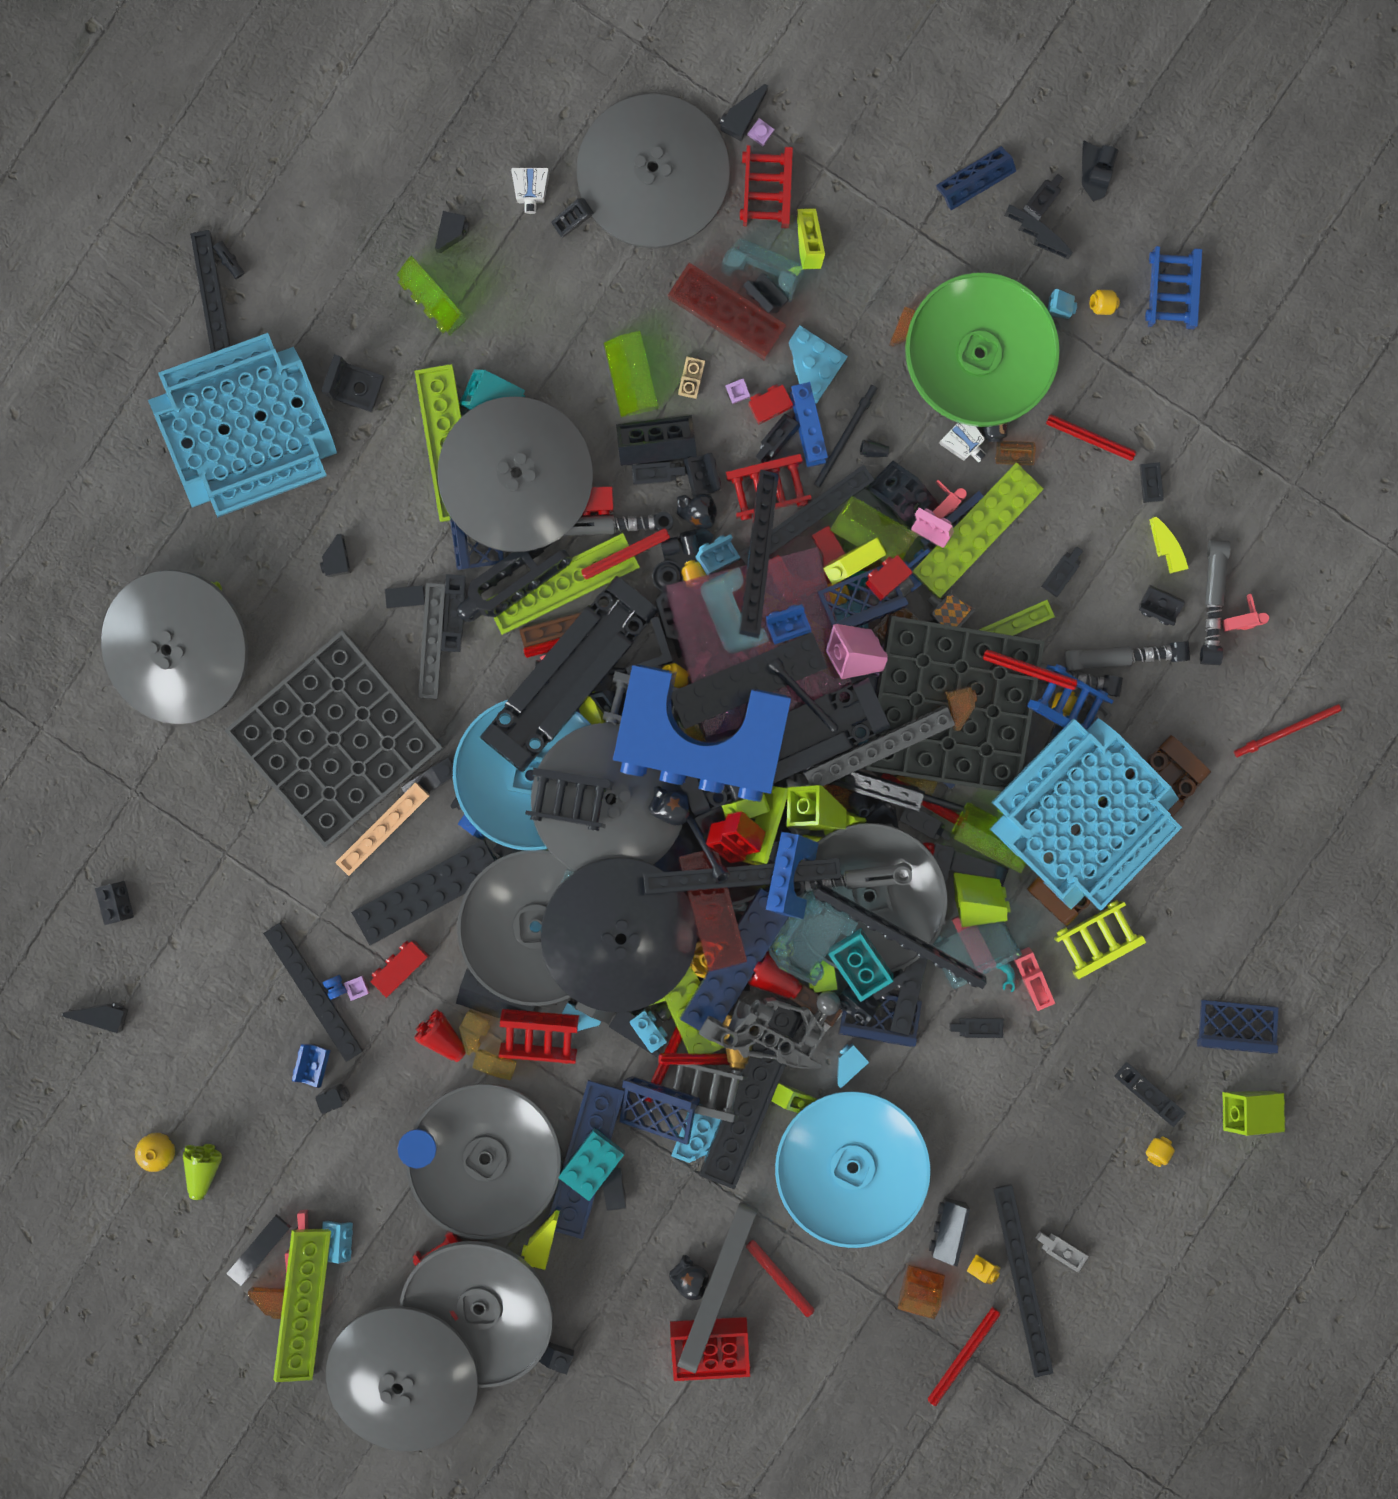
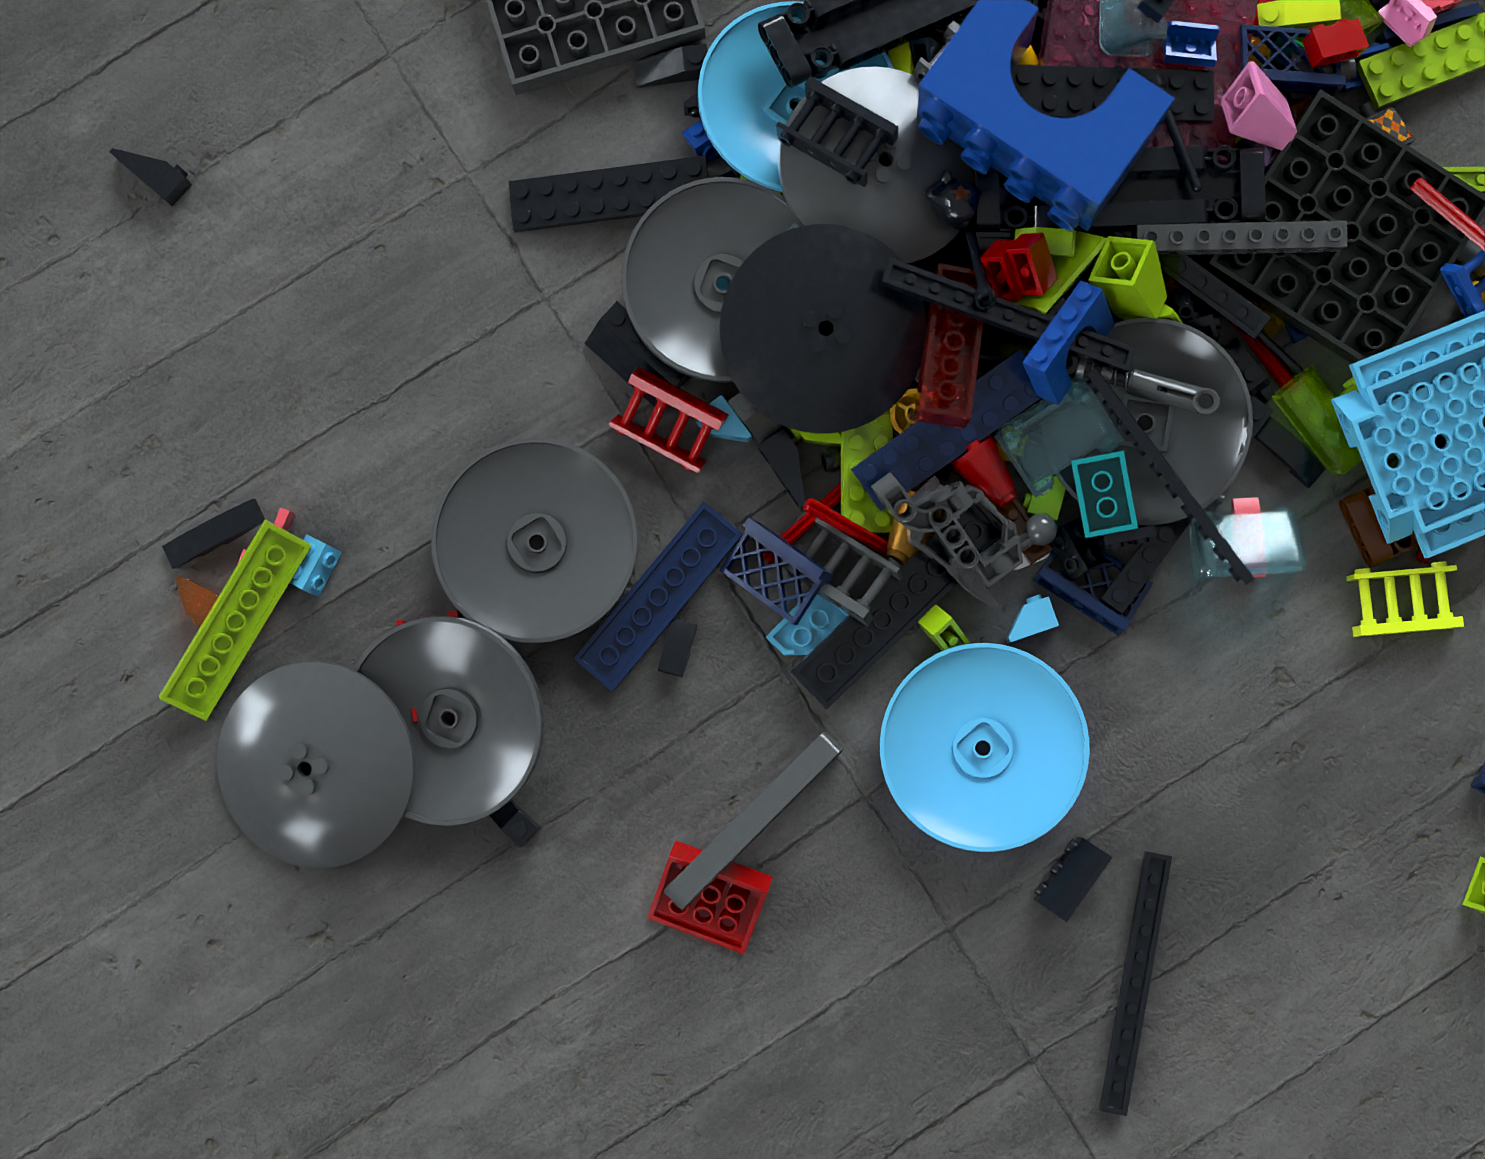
camera: 30 degrees right, 5 degrees down
(114, 902) = (233, 51): black bracket -> none
(154, 1152) = (144, 364): yellow cylinder -> none
(200, 1168) = (188, 405): lime cone -> none
(311, 1065) = (378, 339): blue bracket -> none
(313, 992) = (420, 257): black plate -> none
(332, 1098) = (386, 387): black brick -> none
(334, 987) = (449, 259): blue wheel -> none
(356, 988) = (474, 272): lavender plate -> none
(382, 828) = (590, 97): light nougat plate -> none
(399, 967) = (536, 270): red brick -> none
(417, 1148) = (461, 487): blue tile -> none
(440, 1037) = (549, 372): red cone -> none
(472, 1029) = (590, 381): clear yellow slope -> none
(494, 1065) = (598, 434): clear yellow slope -> none
(540, 1243) = (559, 674): neon yellow slope -> none
(591, 1164) = (664, 601): teal brick -> none
(648, 1030) = (804, 472): medium azure bracket -> none
(689, 1279) = (722, 798): black piece -> none
(778, 1276) = (833, 847): red axle -> none
(921, 1292) = (1002, 941): clear orange slope -> none
(961, 705) = (1363, 227): clear orange slope -> none
(963, 1356) = (1021, 1046): red axle -> none
(979, 900) = (1278, 485): lime slope -> none
(979, 1027) = (1210, 644): black hinge -> none
(984, 1270) = (1092, 947): yellow bracket -> none
(1007, 968) = (1274, 587): teal piece -> none
(1034, 979) = (1302, 614): coral slope -> none
(1062, 1251) = (1201, 967): light grey hinge -> none
(1149, 1094) = (1388, 818): black slope -> none
(1160, 1151) = (1374, 895): yellow head -> none

